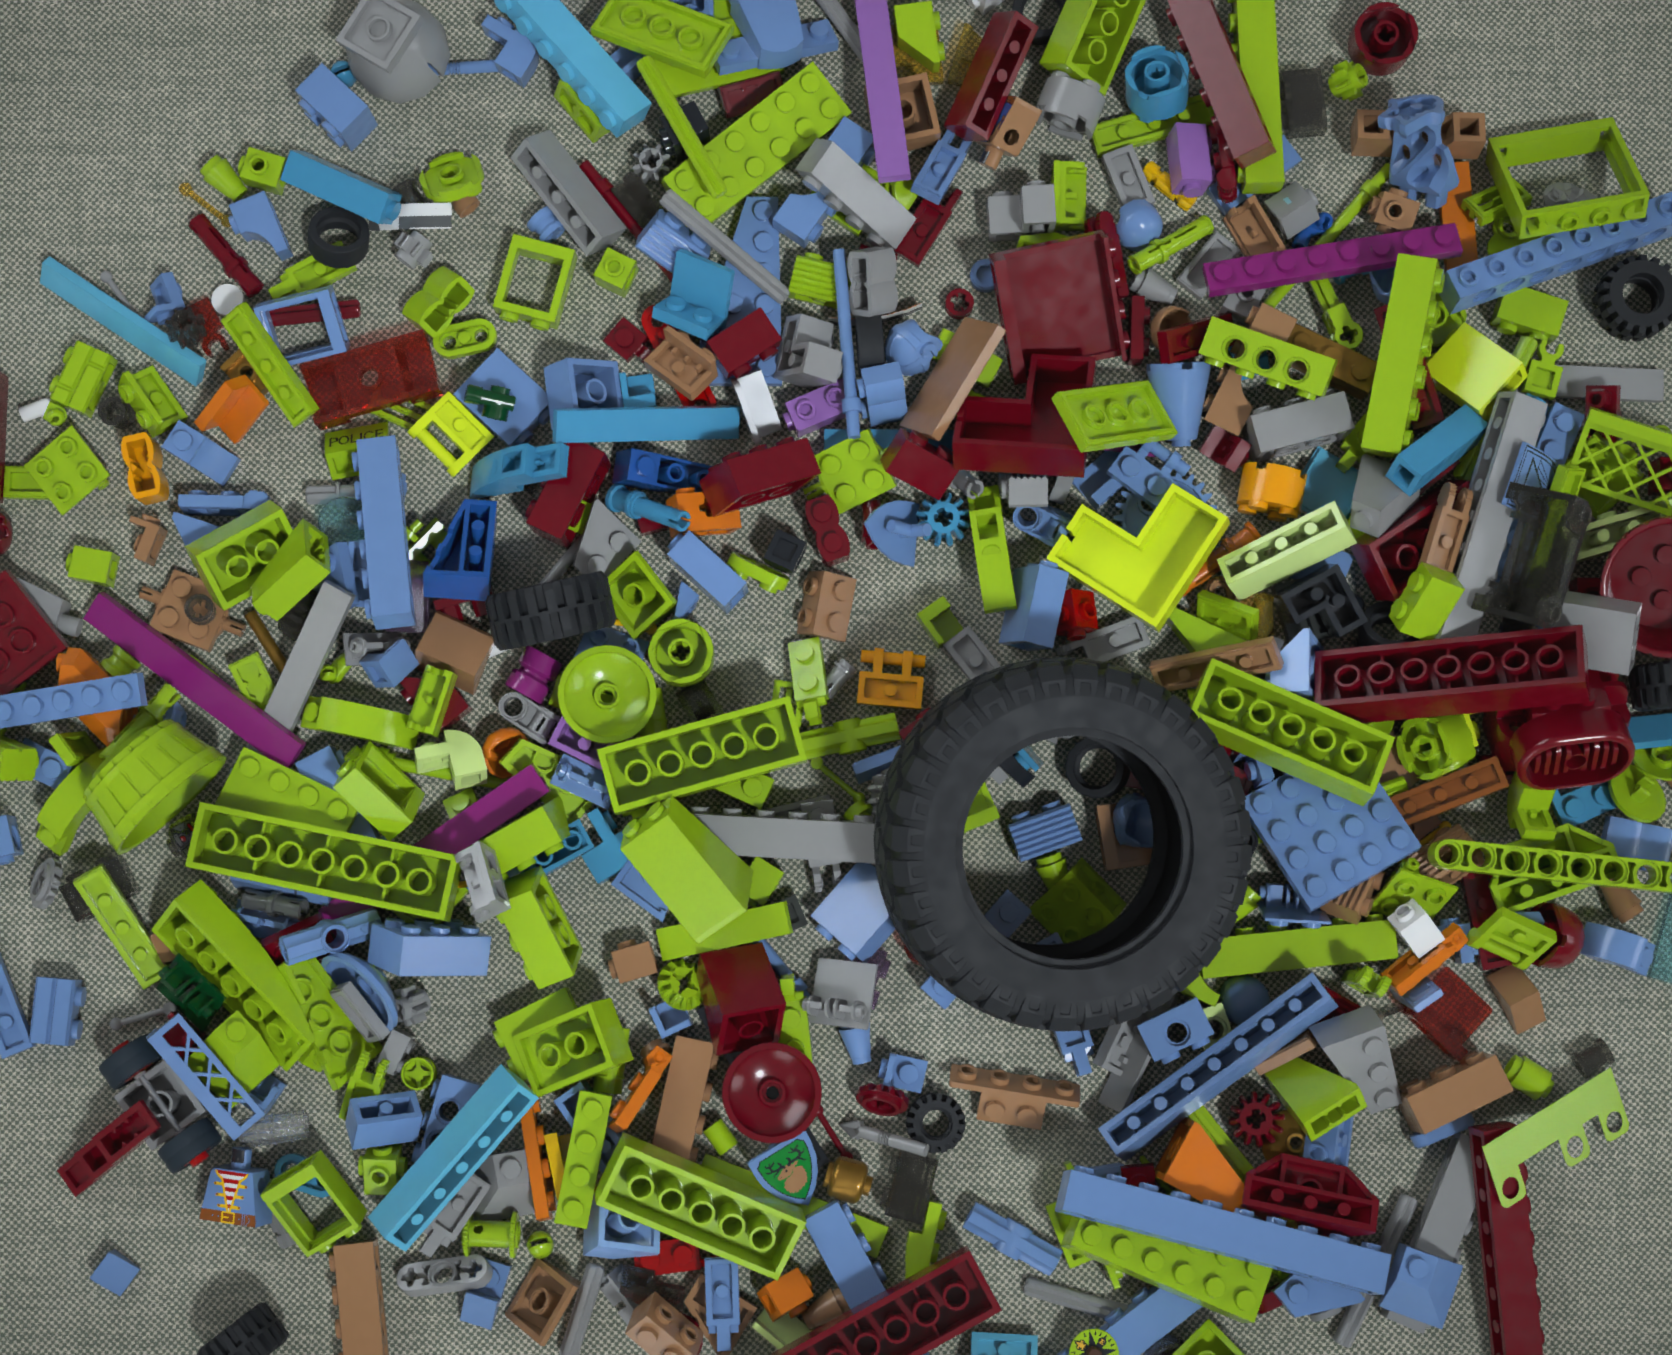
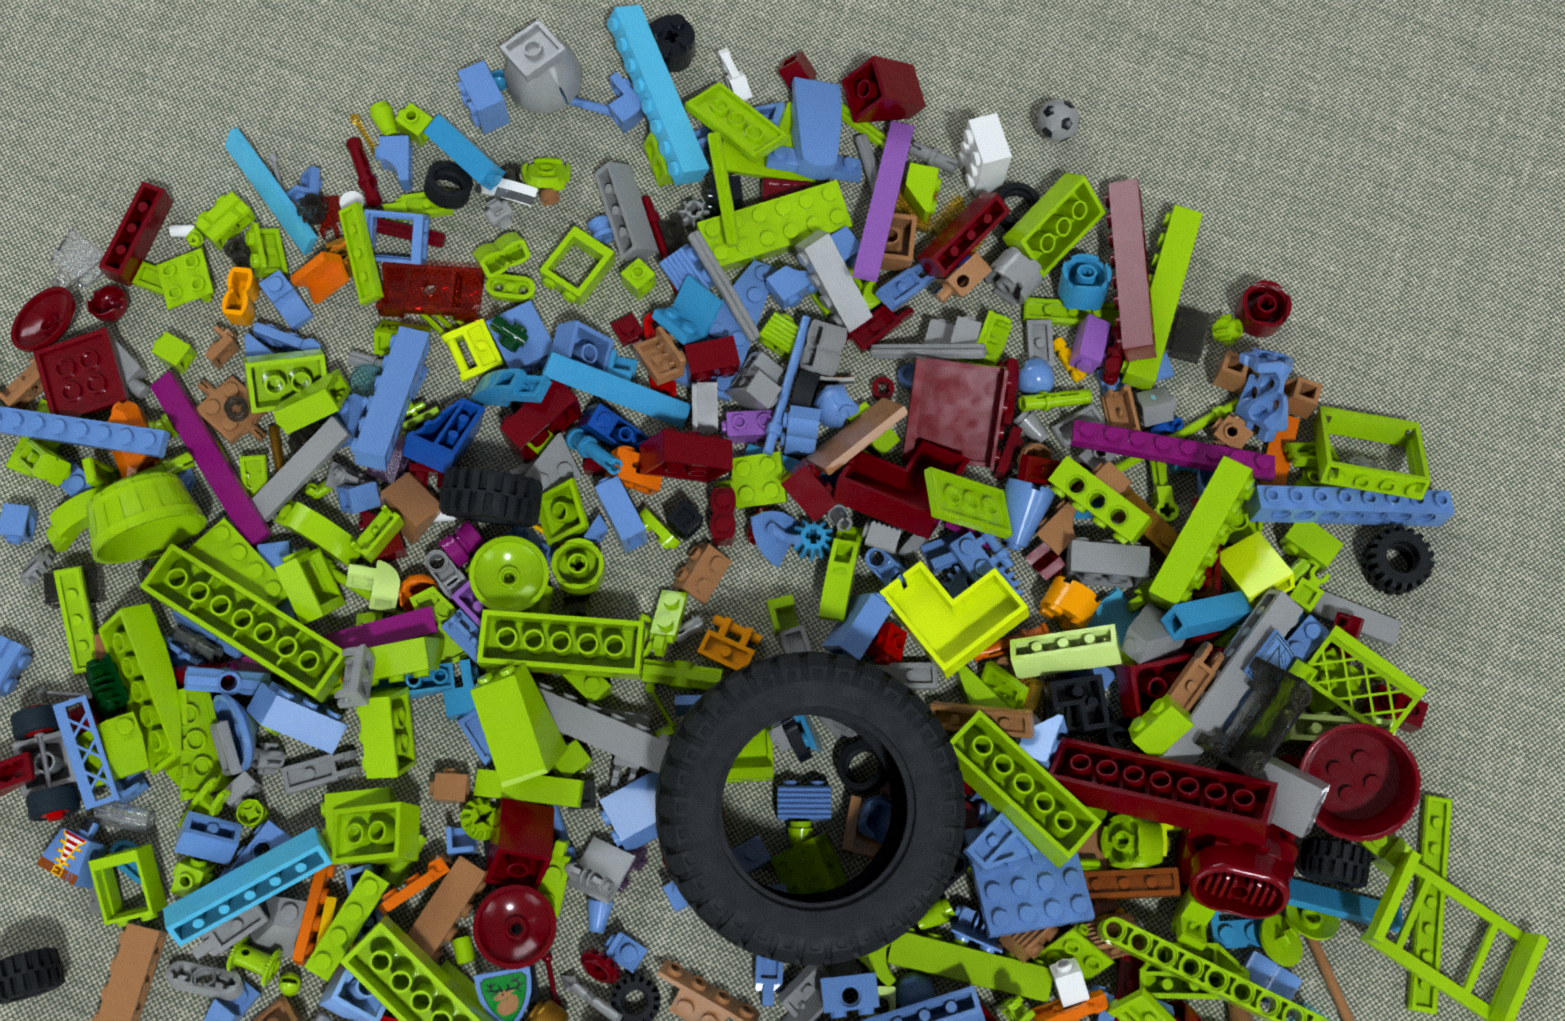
camera: 15 degrees right, 10 degrees down
(472, 1000) = (317, 772): none -> light grey hinge
(1000, 240) = (939, 351): none -> light grey axle
(1285, 804) = (998, 844): none -> medium blue wing

